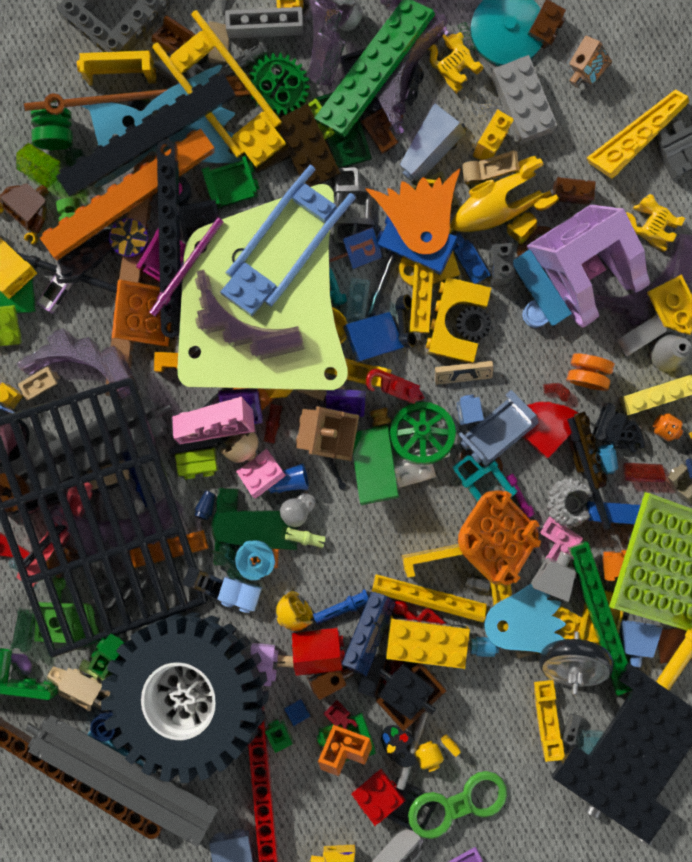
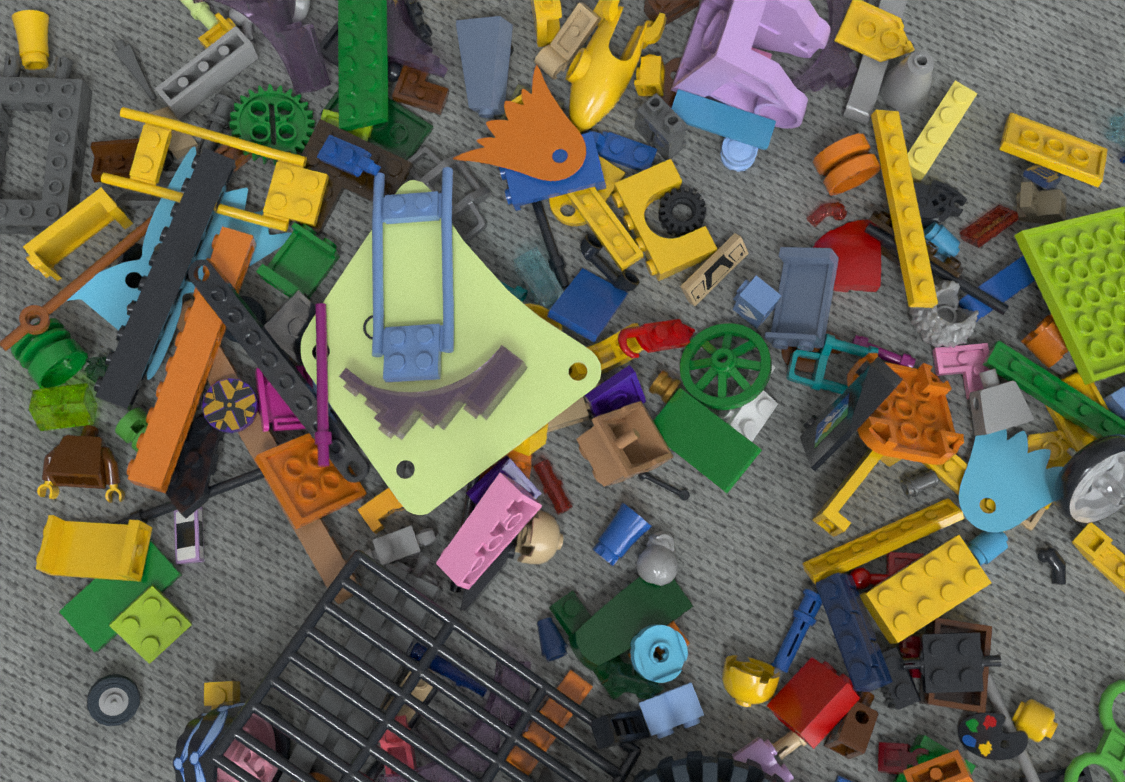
camera: 40 degrees left, 10 degrees down
(38, 383) = (248, 652): tan plate -> none
(86, 351) = (276, 572): clear purple arch -> none
(162, 390) = (401, 545): none -> light grey piece
(197, 463) = (503, 597): lime brick -> none
(260, 473) = (585, 551): bright pink plate -> none
(303, 141) = (347, 157): none -> blue hinge
(305, 537) = (692, 584): yellowish green pin -> none
(360, 248) = (498, 225): blue piece -> none
(450, 745) = (1046, 687): yellow tile -> none
(461, 516) = (848, 411): none -> black wedge
(516, 685) = (1057, 564): none -> black arm
(598, 424) = (904, 209): none -> yellow plate
(668, 427) = (972, 160): orange head -> none

